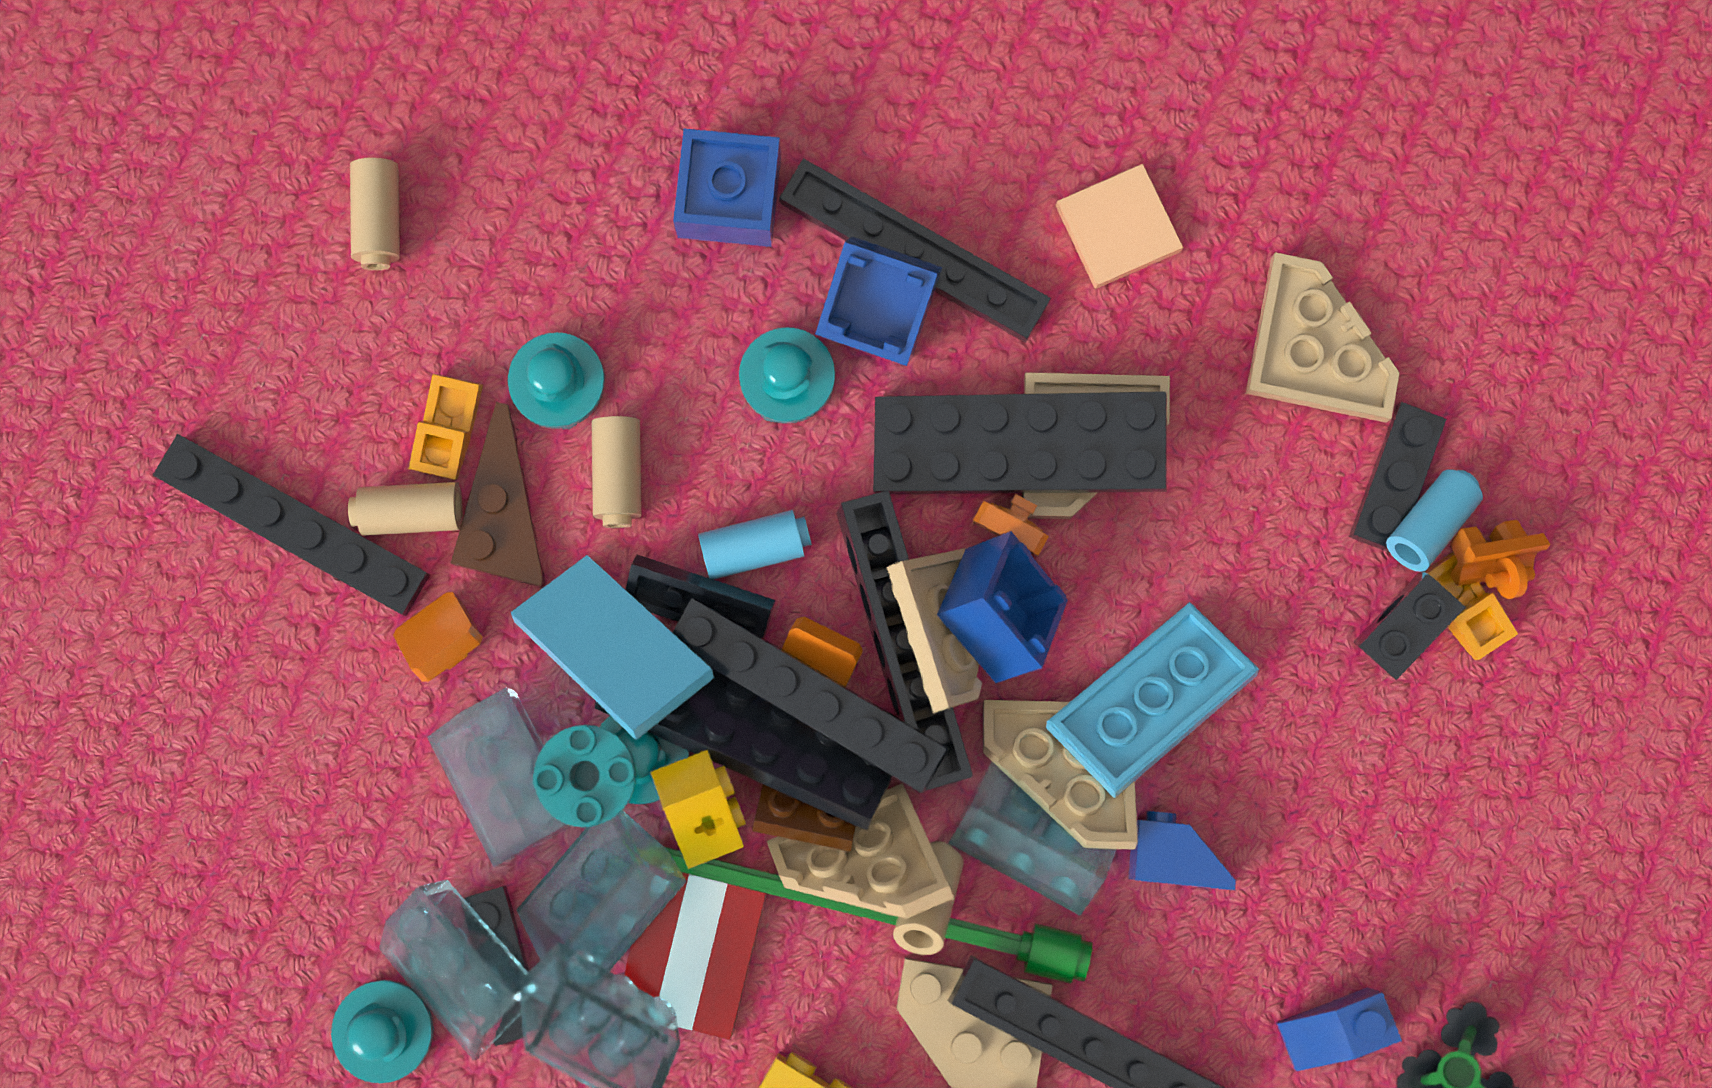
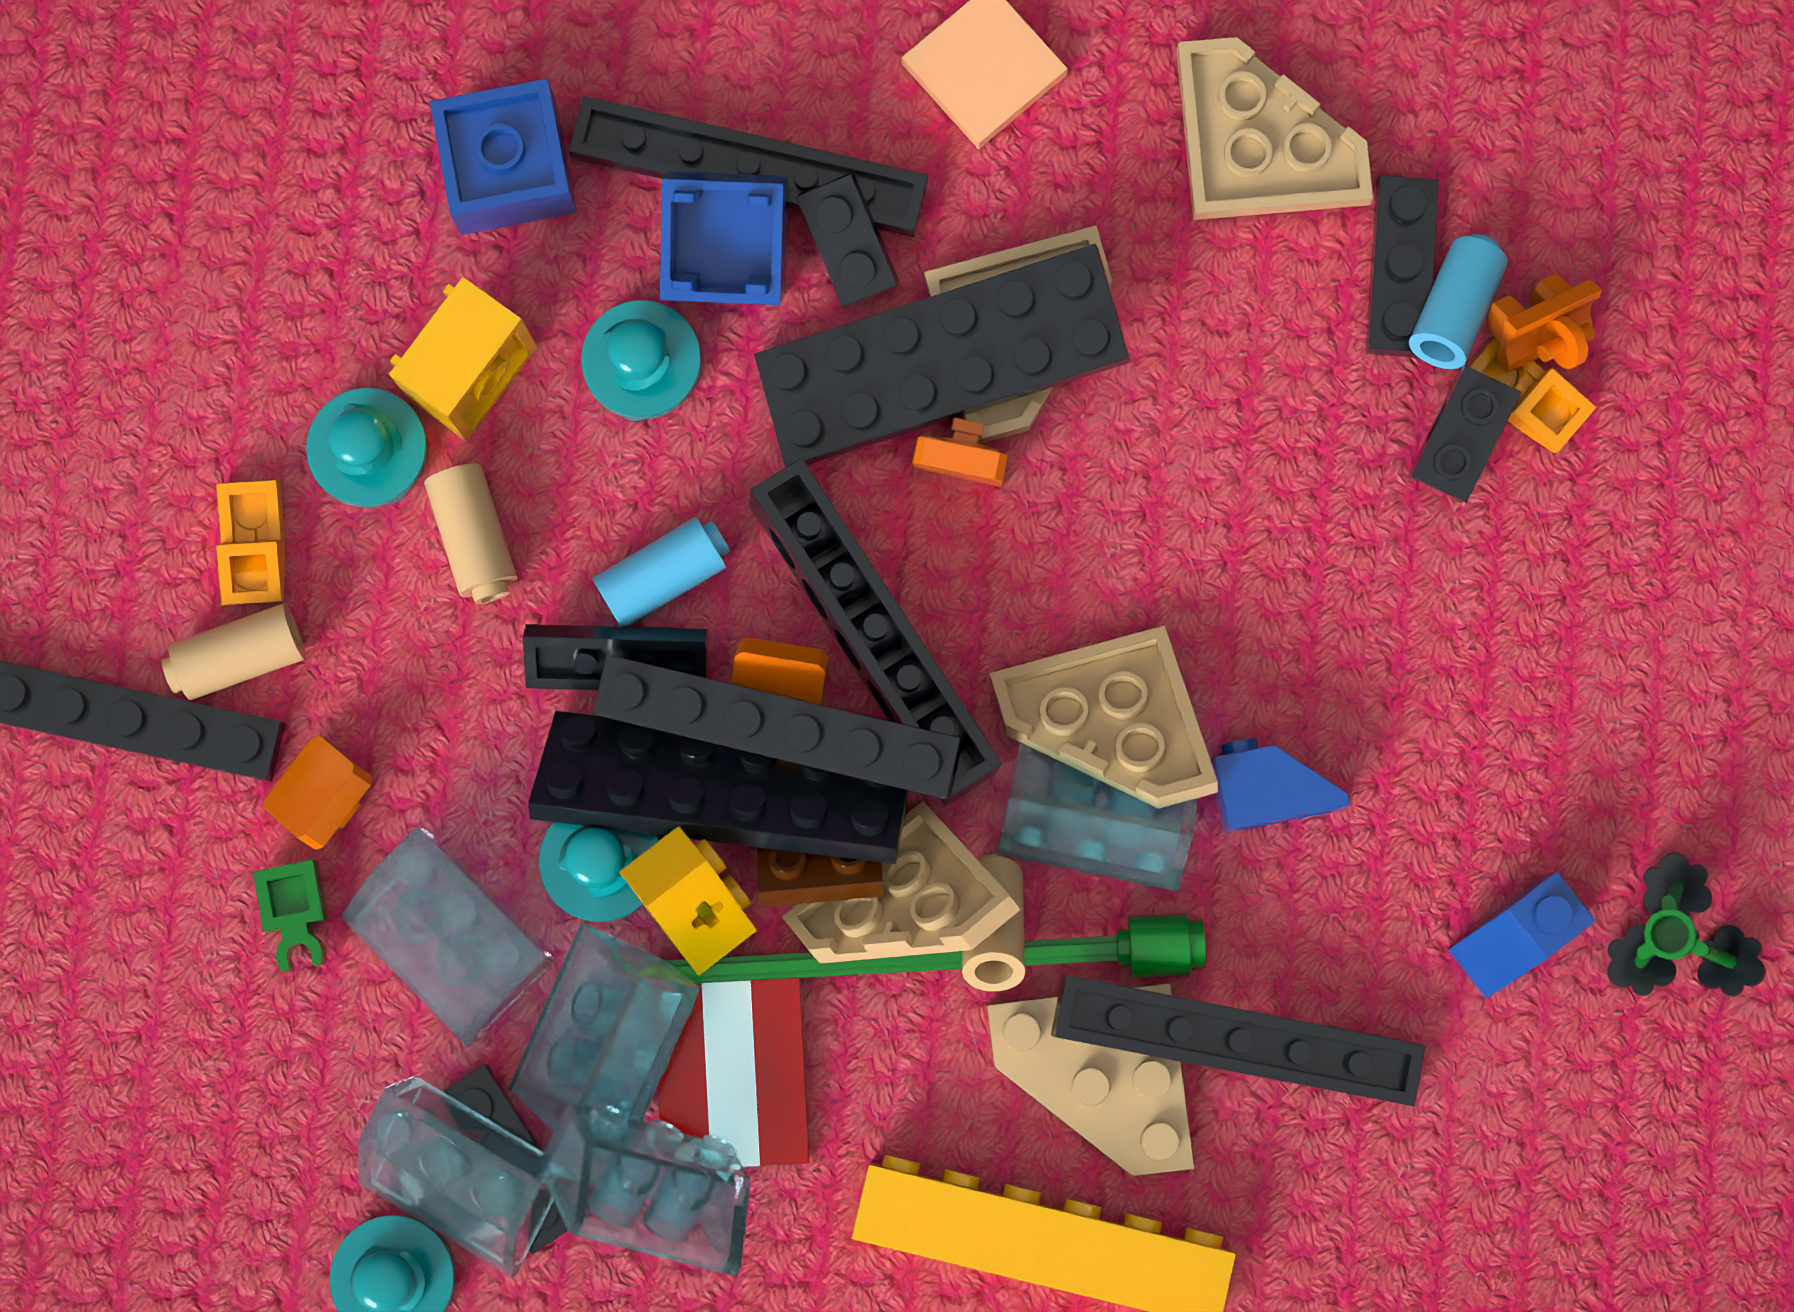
camera: 10 degrees left, 0 degrees up
(374, 212) = (88, 312): tan brick -> none
(391, 714) = (290, 902): none -> green plate
(497, 522) = (347, 639): reddish brown wing -> none
(584, 776) = (542, 900): teal plate -> none
(612, 646) = (529, 739): medium azure tile -> none
(650, 334) = (463, 358): none -> yellow container
(944, 662) = (918, 586): tan plate -> none
(974, 329) = (847, 239): none -> black plate
(1003, 607) = (978, 554): blue container -> none
(1152, 699) = (1187, 612): medium azure tile -> none

